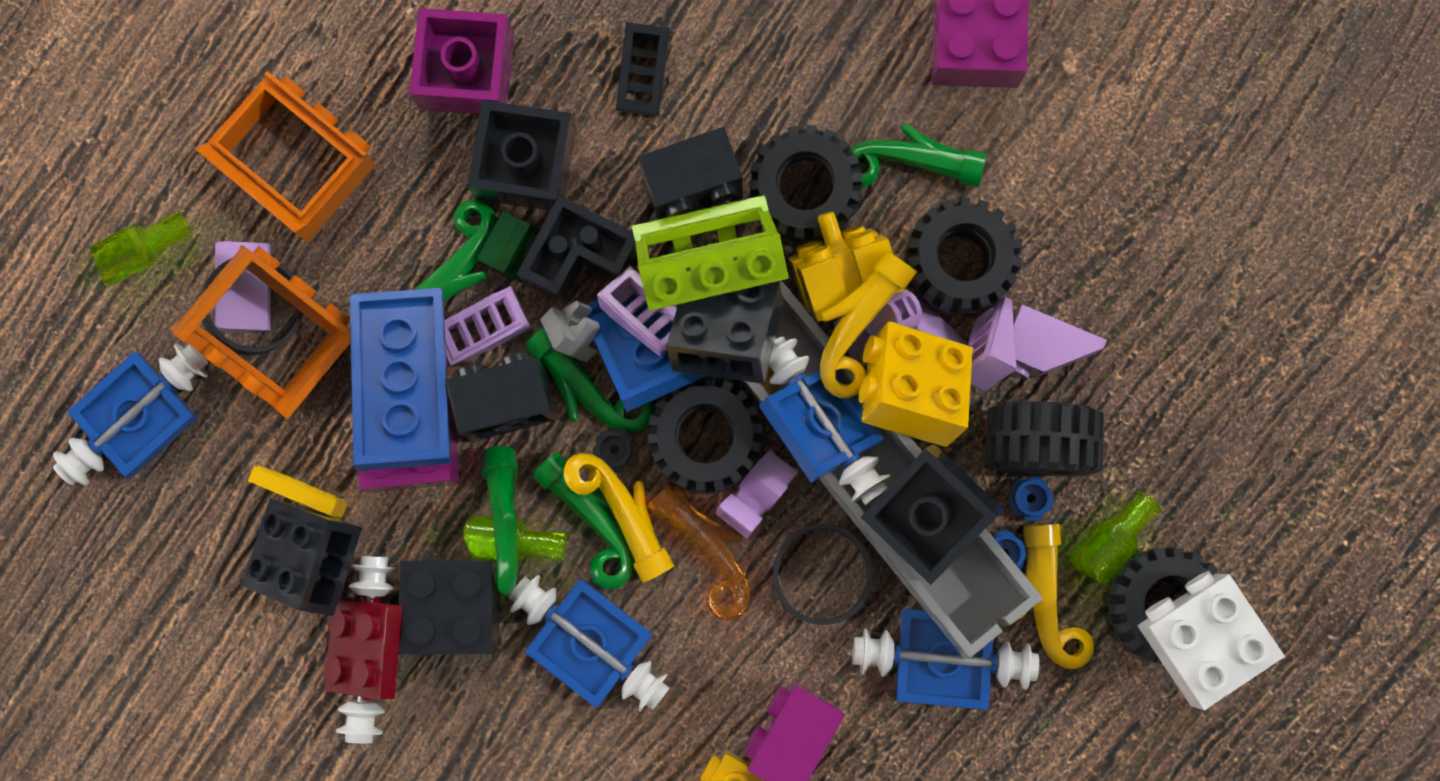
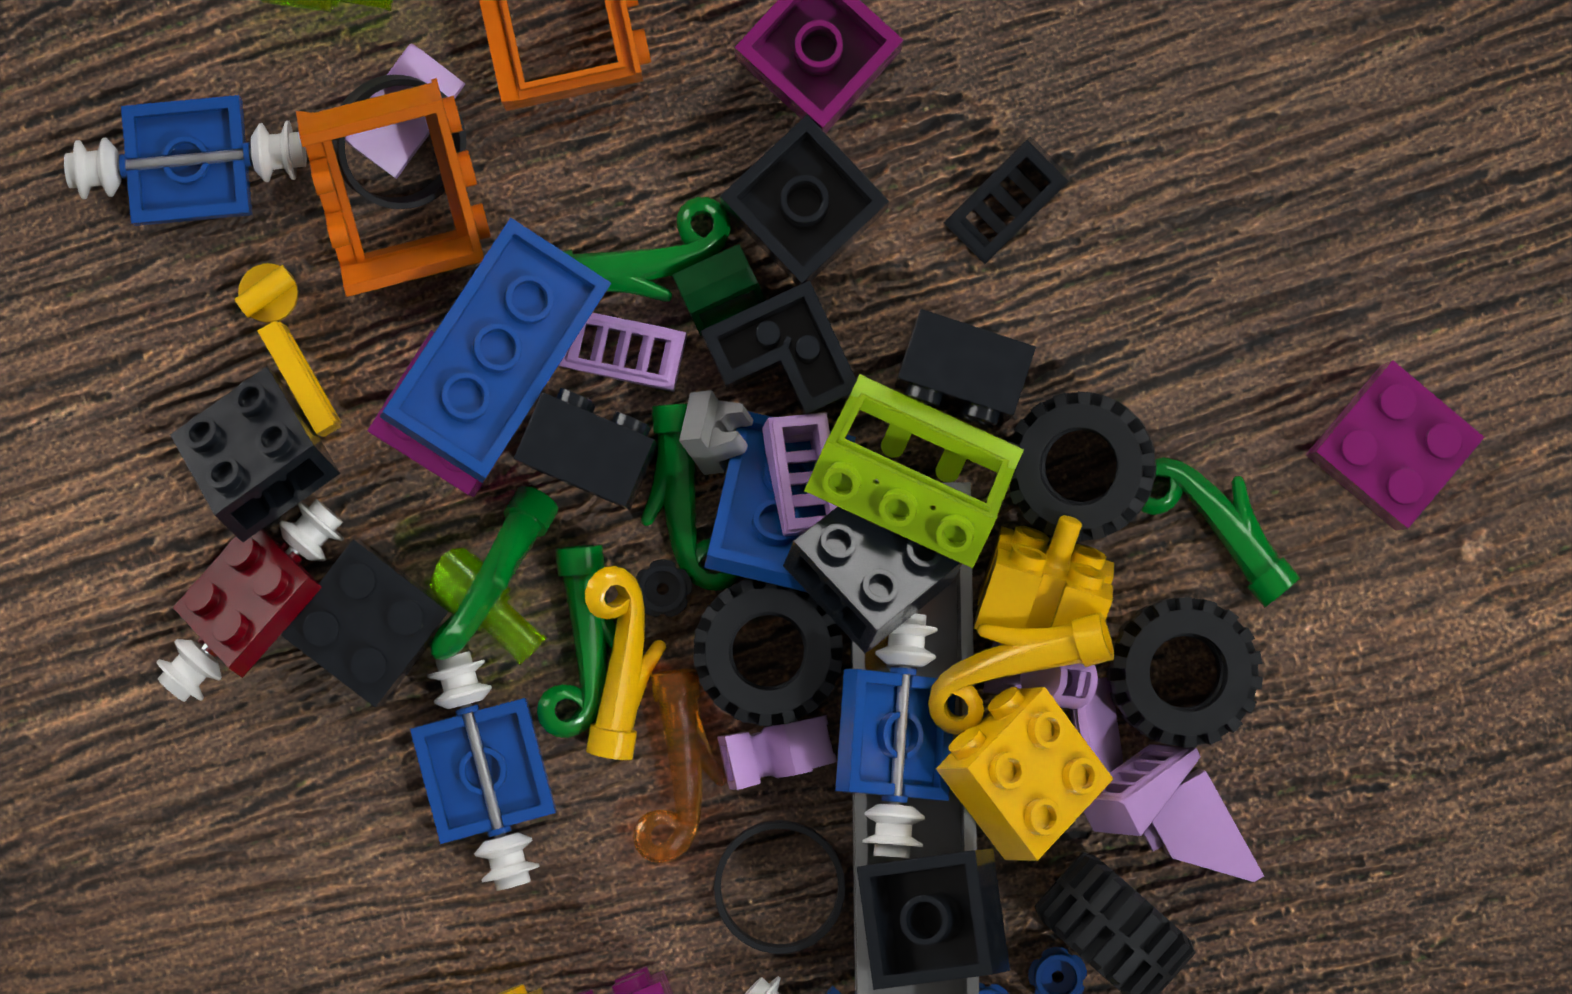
camera: 25 degrees right, 5 degrees up
(240, 455) = (267, 293): none -> yellow plate

